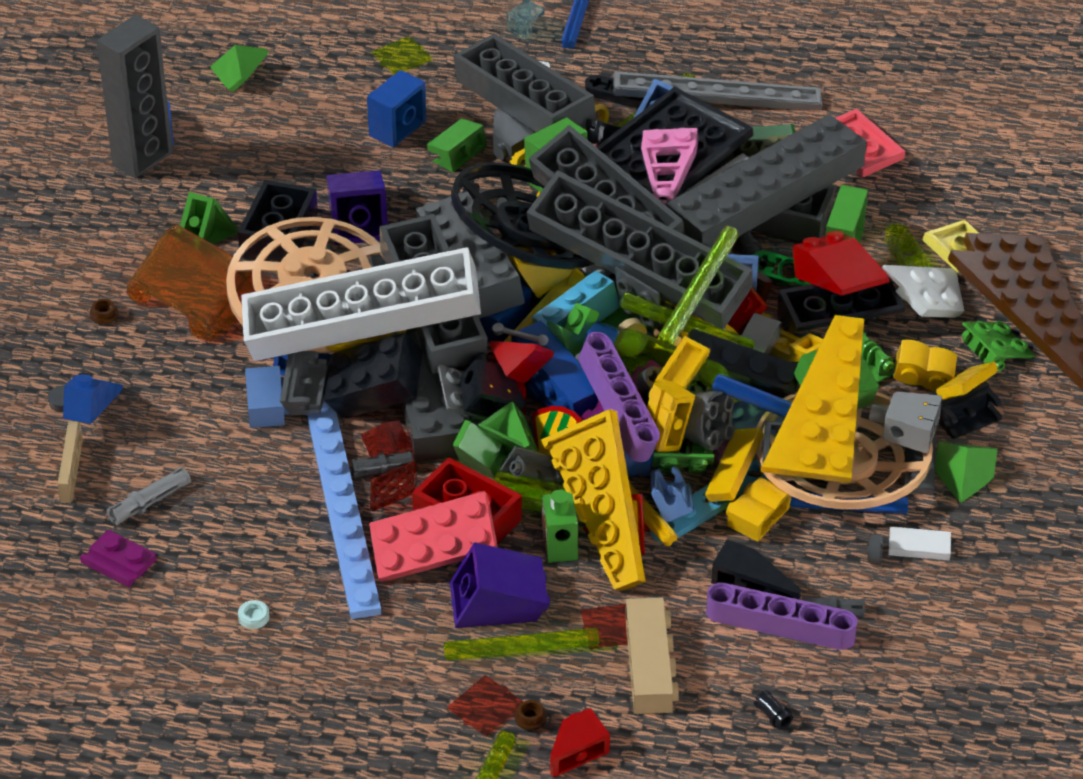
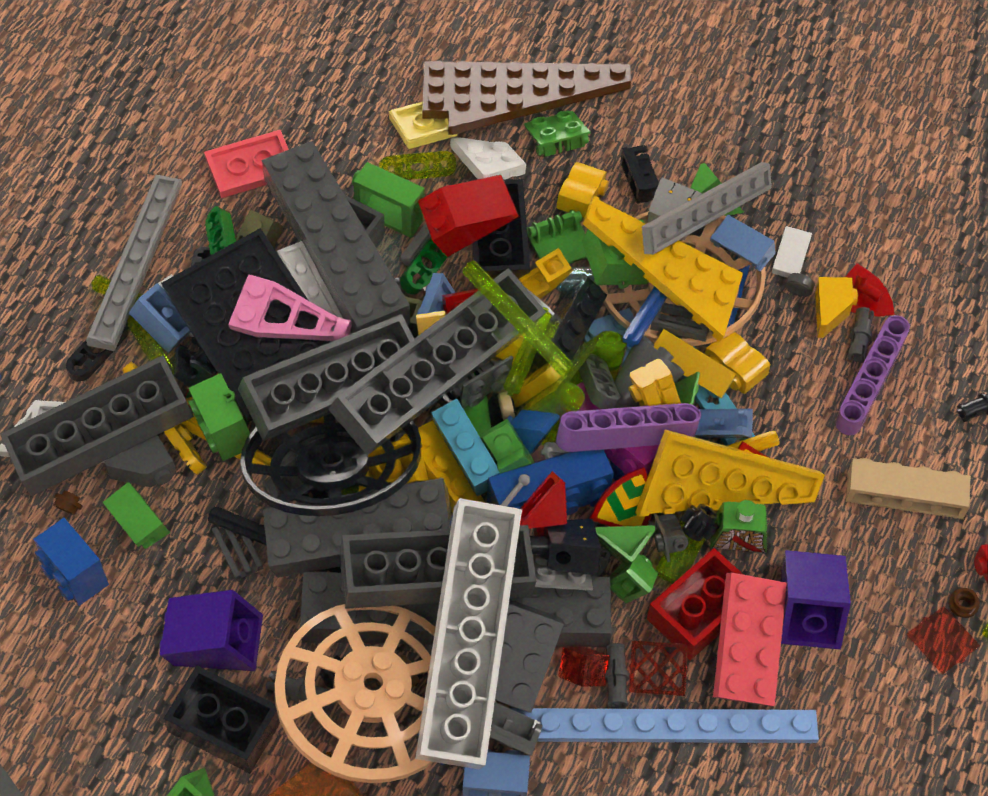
camera: 80 degrees left, 15 degrees up
(459, 104) = (67, 502): none -> reddish brown plate
(521, 643) = (875, 594): clear neon green axle -> none
(547, 482) = (700, 522): none -> black gear
(609, 622) = (853, 518): clear red piece -> none
(684, 363) = (605, 363): yellow tile -> none
(749, 569) = (817, 385): black slope -> none
(857, 574) = (833, 302): none -> yellow slope
(887, 472) = (744, 242): none -> medium blue hinge
(892, 609) = (871, 292): none -> red shield
(916, 432) = (705, 208): none -> light grey tile
(967, 380) = (617, 161): yellow tile -> none

